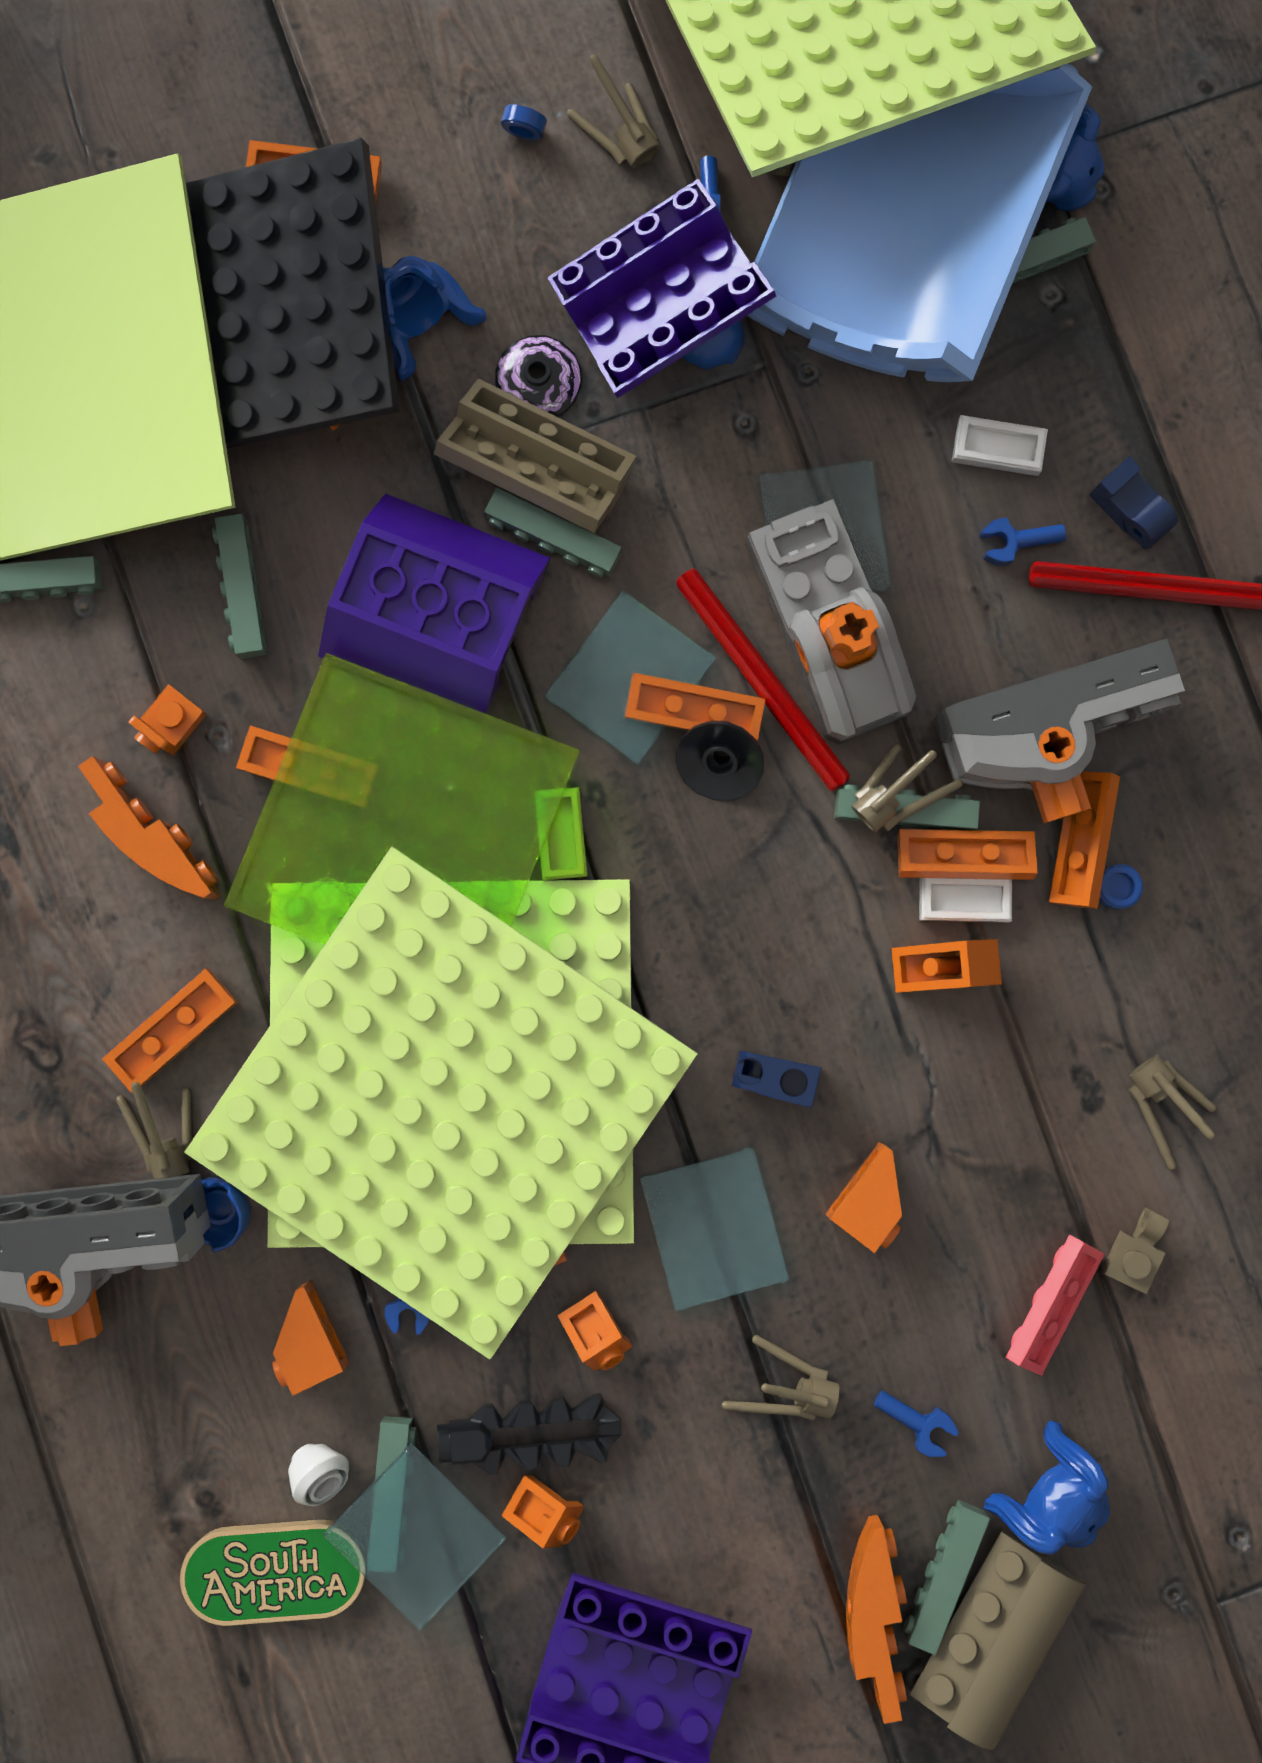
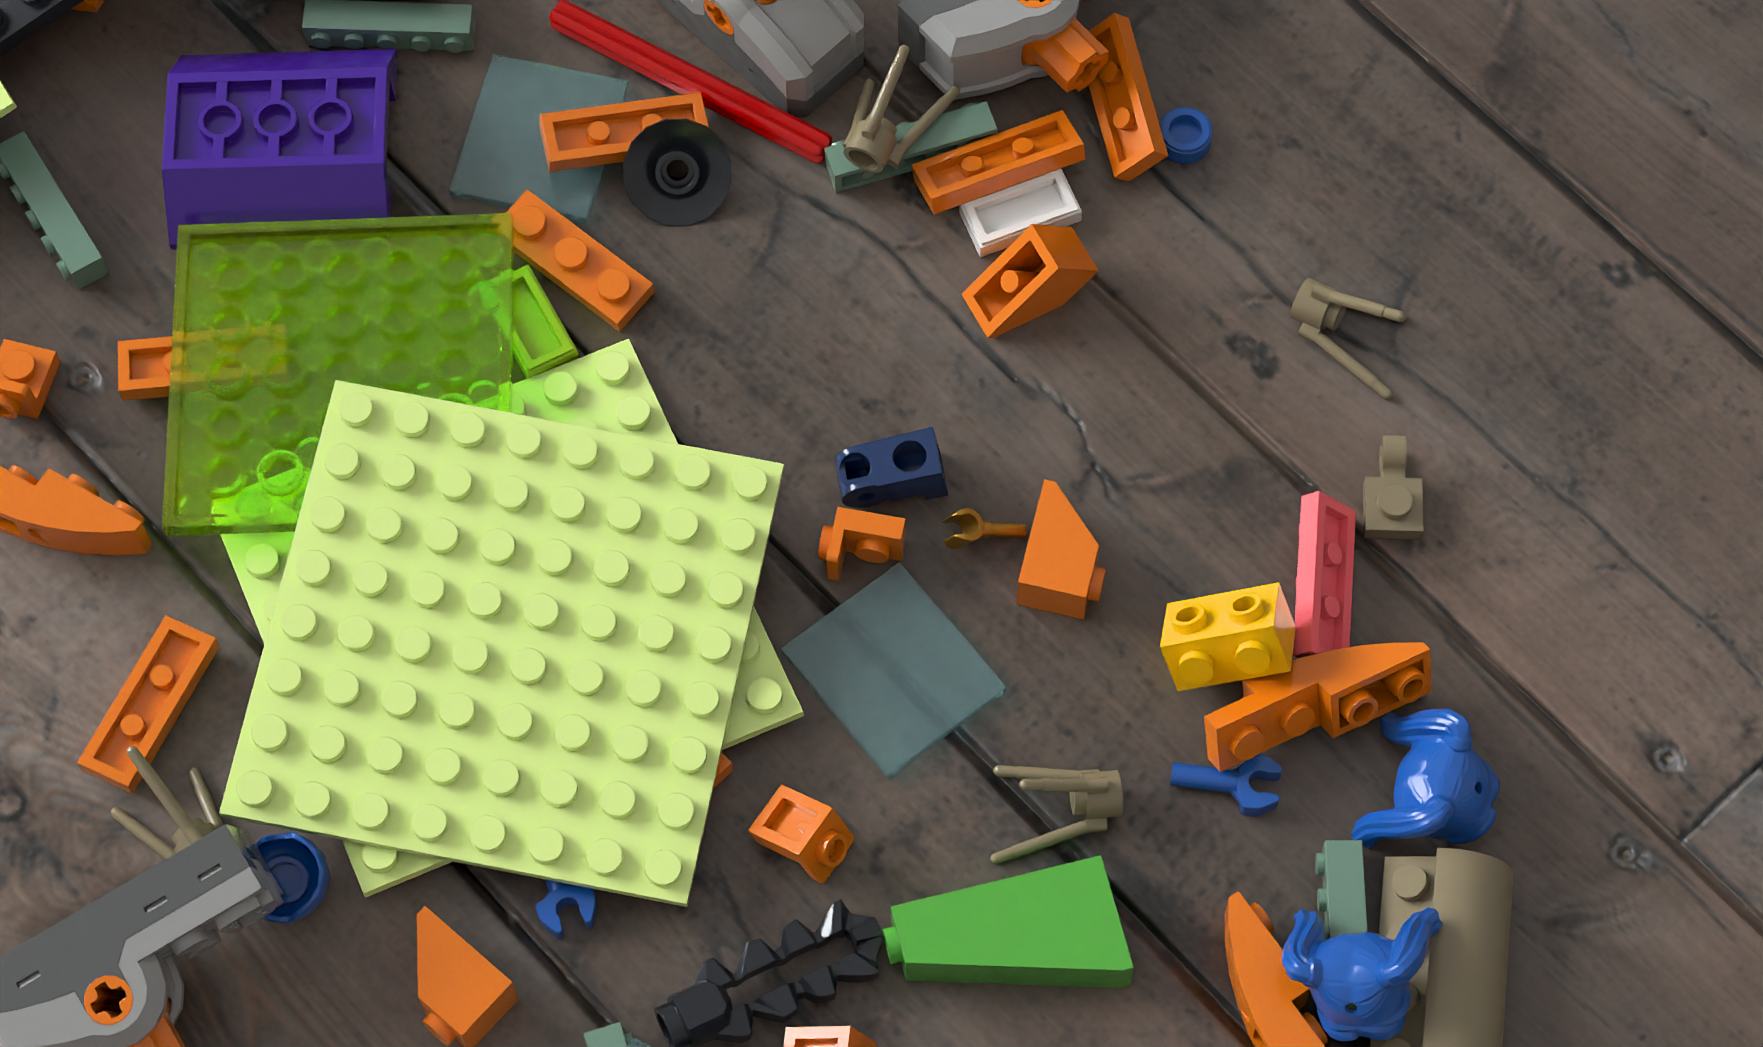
camera: 20 degrees left, 20 degrees down
(615, 799) = (577, 262): none -> orange plate
(717, 1476) = (1017, 930): none -> bright green slope
(739, 1126) = (865, 534): none -> orange bracket
(819, 1148) = (974, 528): none -> pearl gold hand
(939, 1638) = (1360, 971): none -> blue hair
(964, 1332) = (1228, 637): none -> yellow brick
(1023, 1395) = (1325, 689): none -> orange slope

